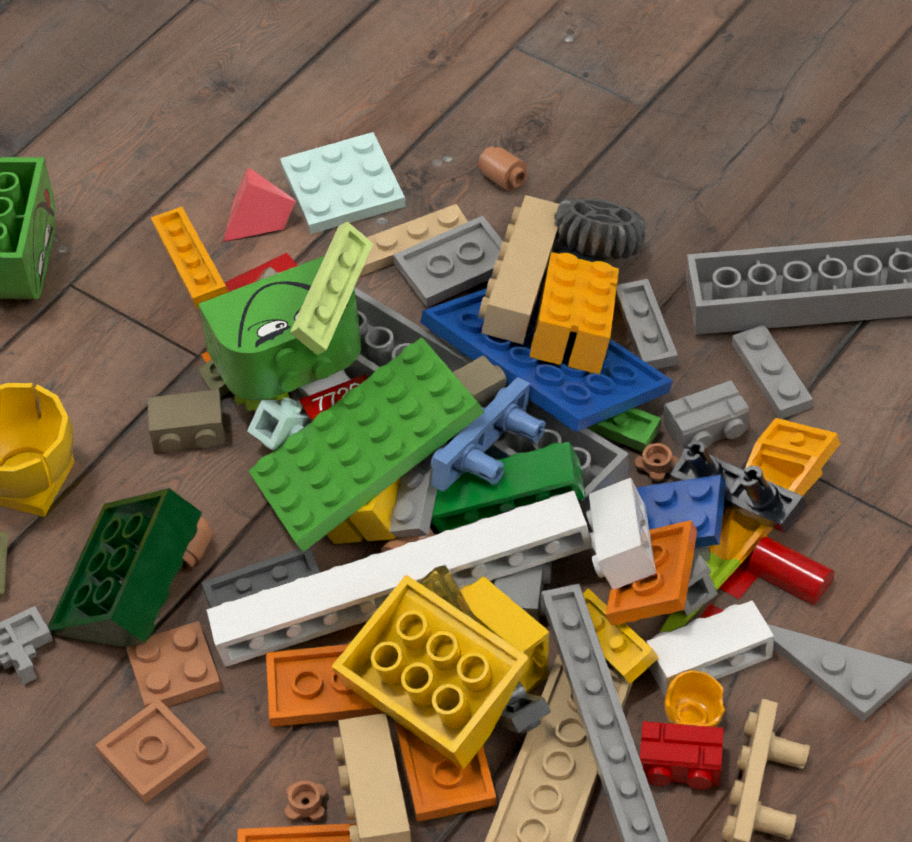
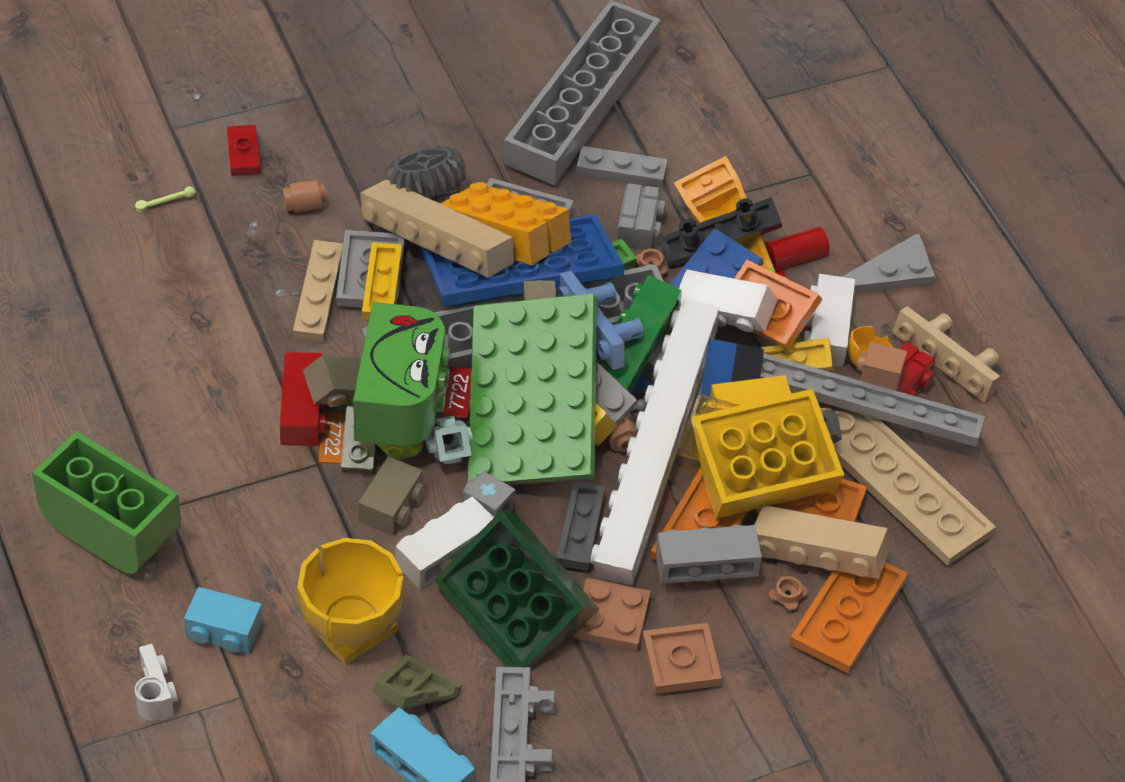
camera: 65 degrees left, 0 degrees up
(135, 475) = (440, 541): none -> white brick
(188, 256) = (233, 410): light orange plate -> none
(236, 494) = (490, 493): none -> light grey brick
(257, 208) = (202, 353): coral slope -> none
(281, 696) = (708, 554): none -> light grey brick
(331, 288) = (415, 308): yellowish green plate -> none
(342, 182) = (222, 293): light aqua plate -> none
(401, 78) = (142, 206): none -> yellowish green hinge
(430, 270) = (382, 276): none -> yellow plate
(527, 101) = (243, 150): none -> red plate
(535, 584) = (730, 363): none -> sticker
(650, 718) = (882, 365): none -> nougat brick

